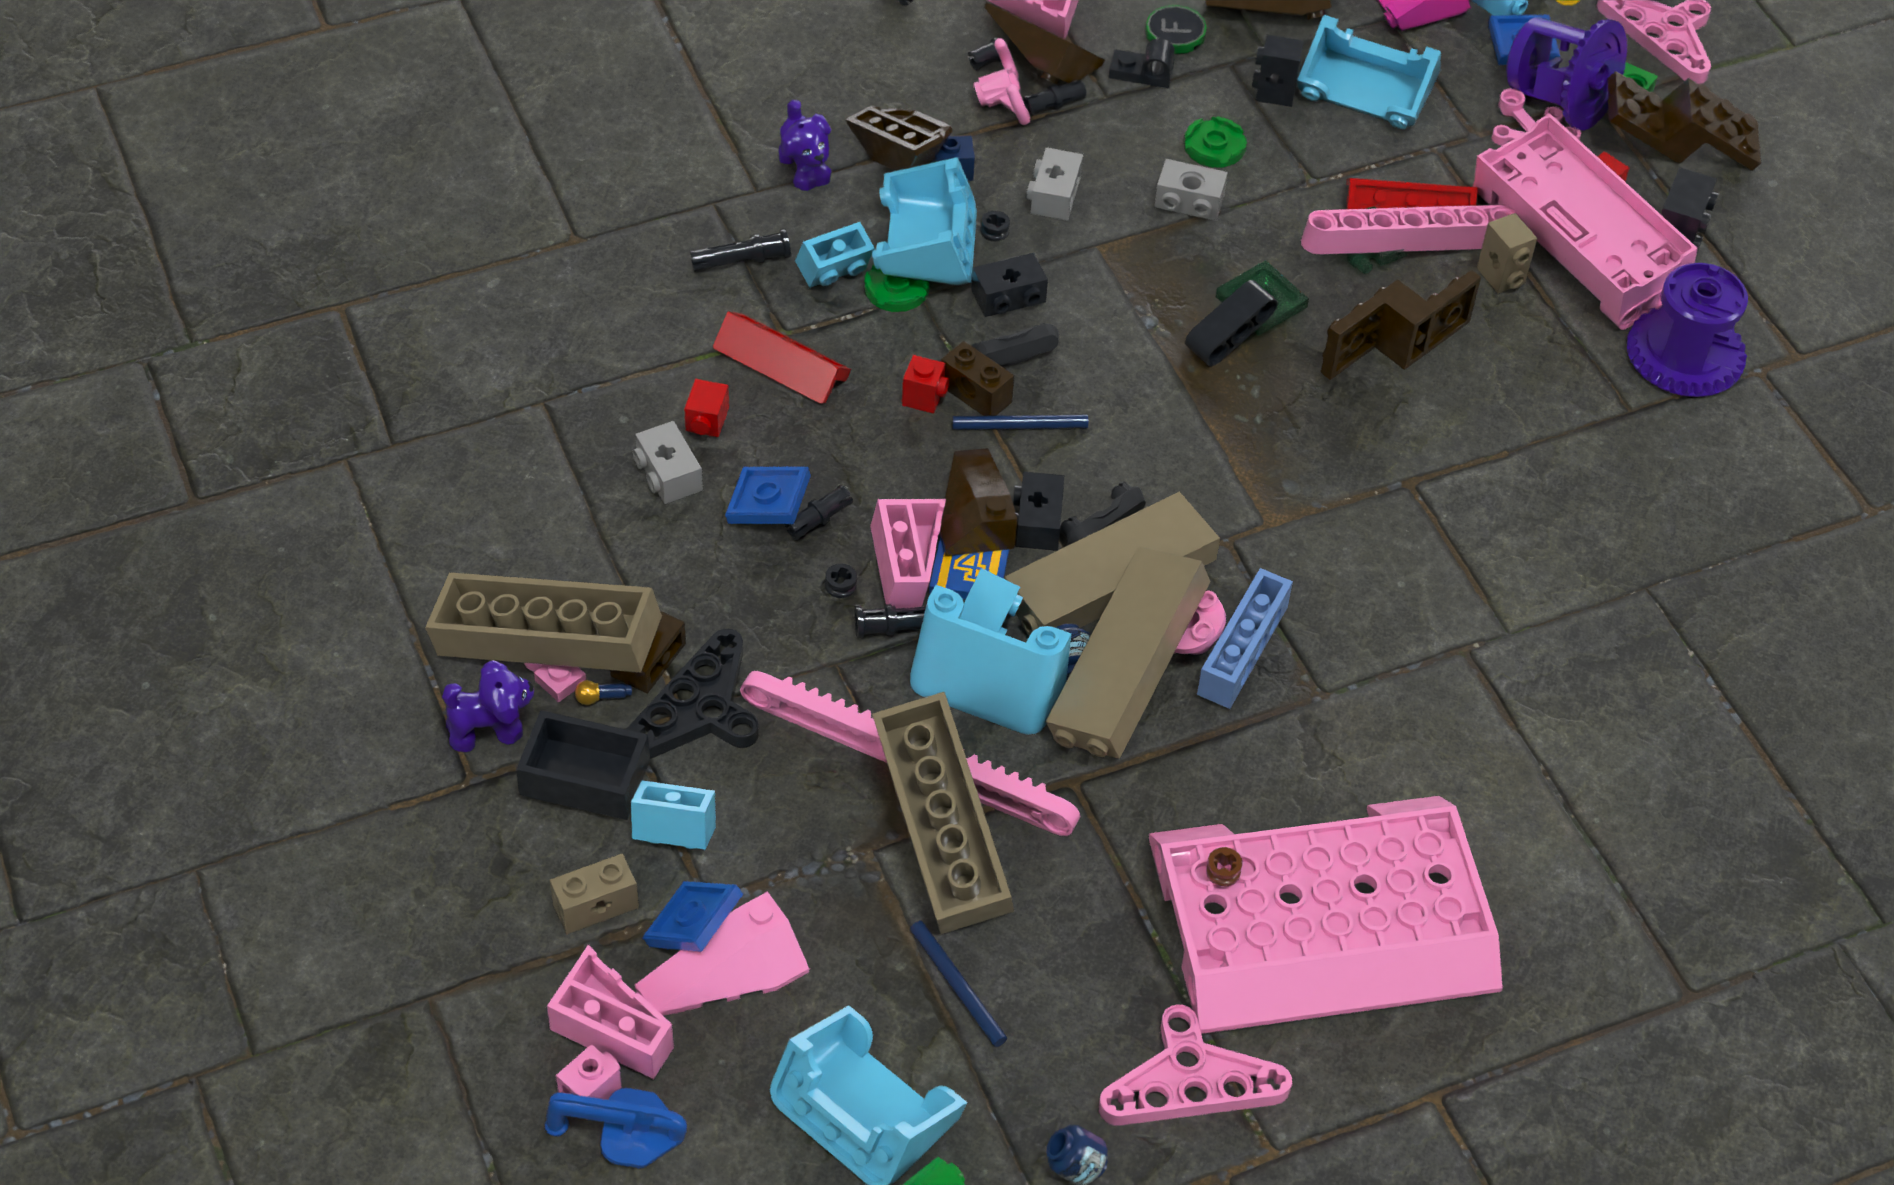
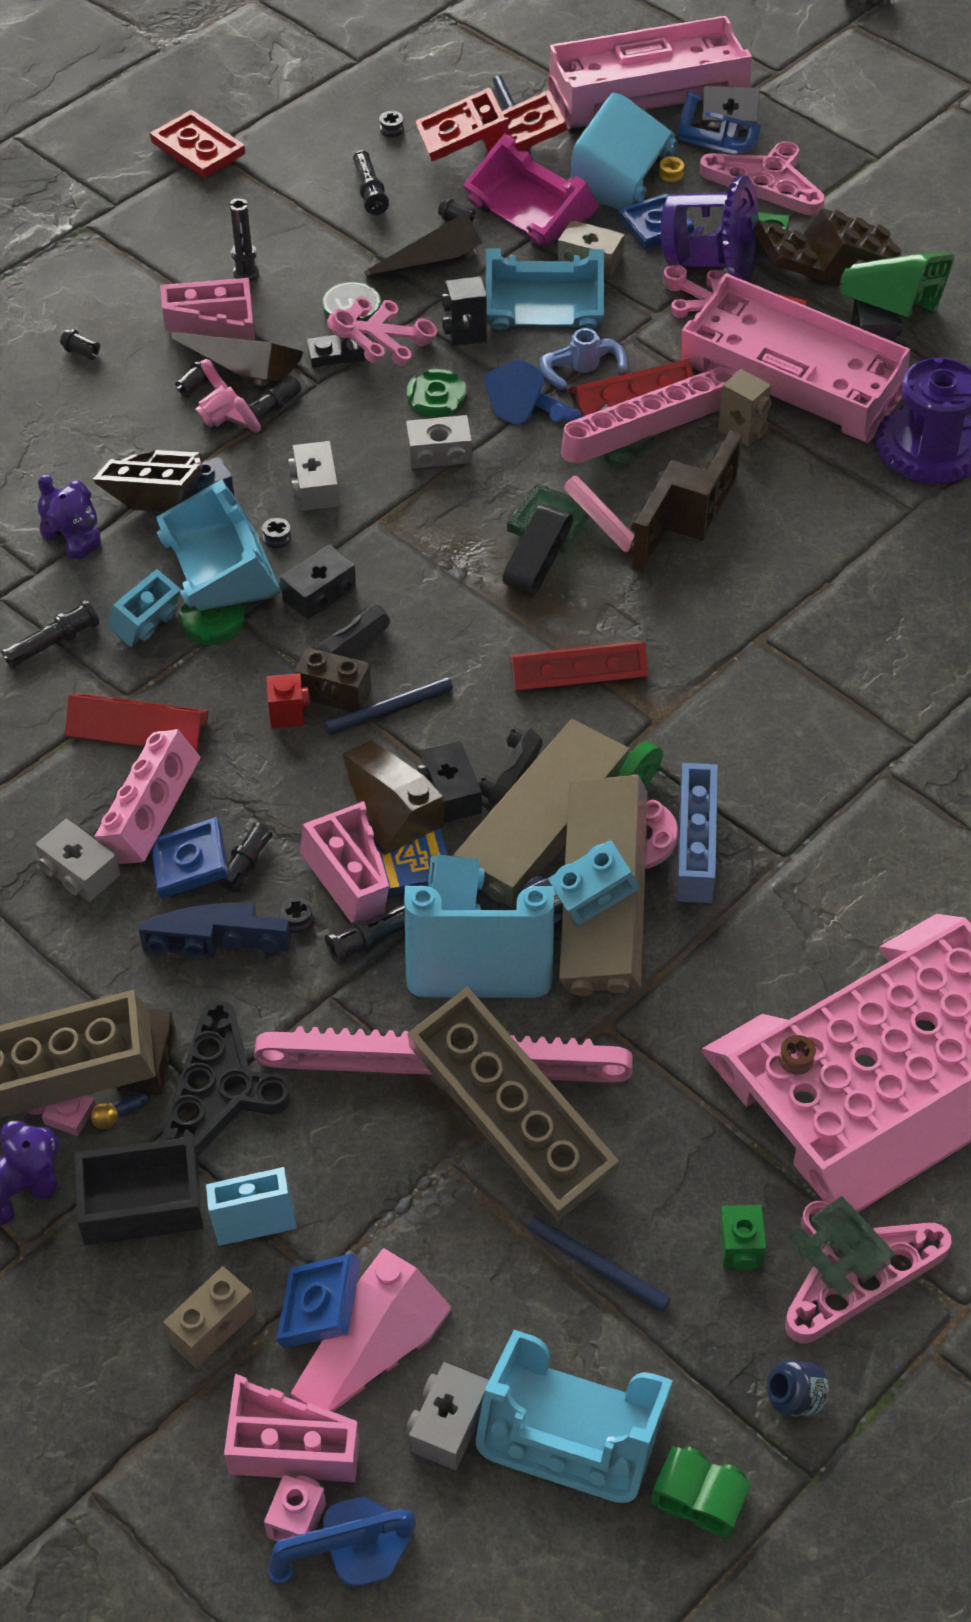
camera: 20 degrees left, 0 degrees up
(706, 407) = (90, 794): red brick -> none
(751, 561) = (203, 927): none -> dark blue slope
(752, 1057) = (440, 1437): none -> light grey brick
(756, 427) = (148, 796): none -> bright pink brick
(1097, 1009) = (742, 1237): none -> green brick
(1112, 644) = (594, 882): none -> medium azure brick
(1152, 47) = (344, 324): none -> bright pink plant
(1193, 1047) = (850, 1238): none -> clear green plate
(1217, 446) = (579, 665): none -> red panel
(1224, 558) = (643, 762): none -> green piece
(1289, 164) = (516, 390): none -> blue piece
(1308, 305) = (599, 512): none -> bright pink axle
(1376, 151) = (582, 356): none -> medium blue piece
(1455, 46) = (581, 237): none -> dark tan brick
(1724, 175) = (899, 281): none -> green windscreen

